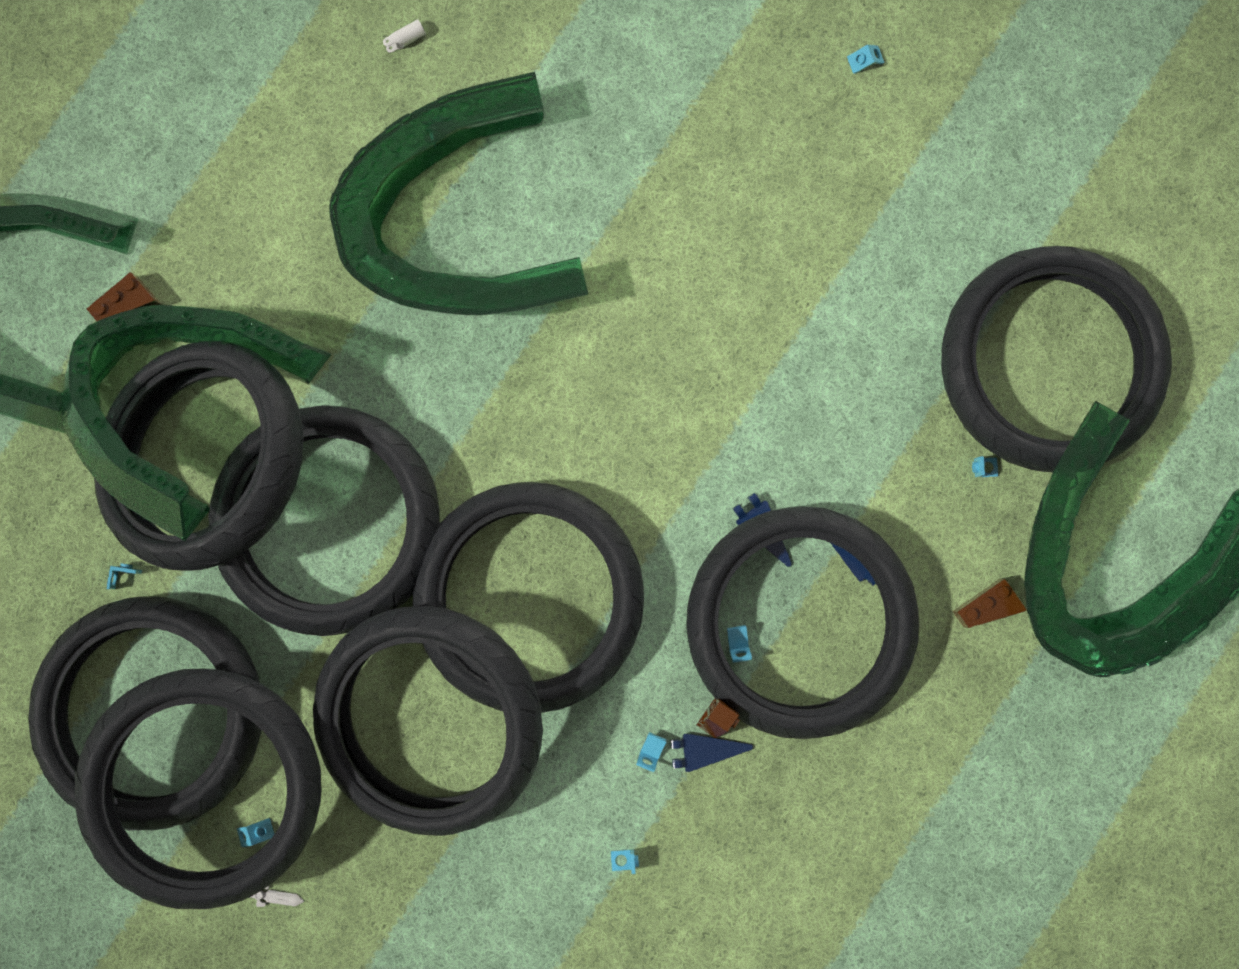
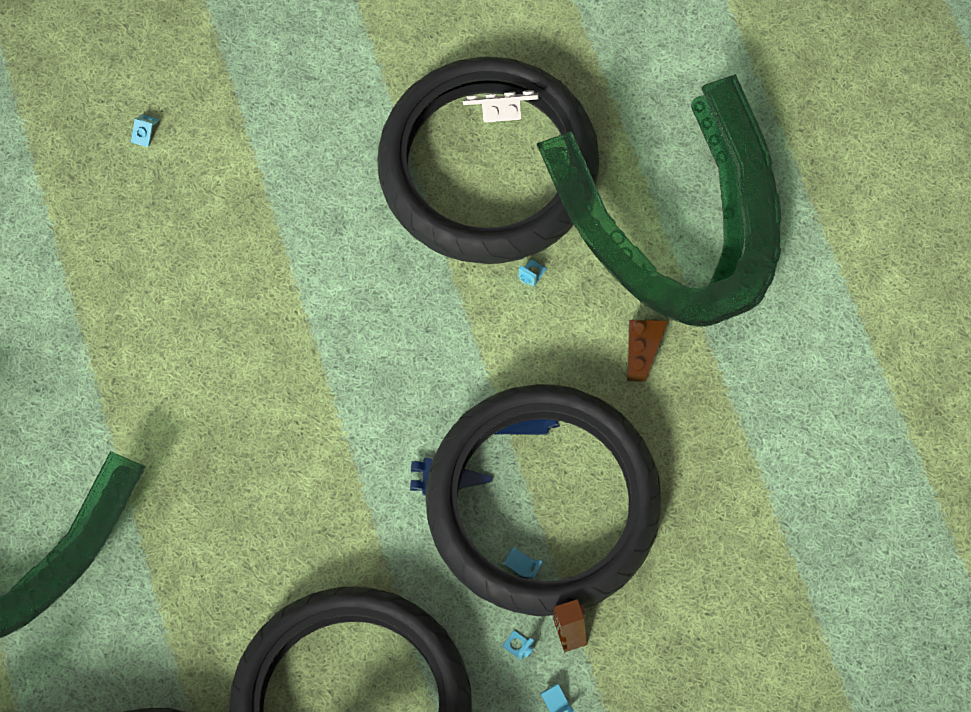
camera: 50 degrees left, 15 degrees down
(674, 695) = (526, 649): none -> medium azure bracket
(704, 751) = (590, 660): dark blue flag -> none
(1109, 338) = (501, 107): none -> white bracket

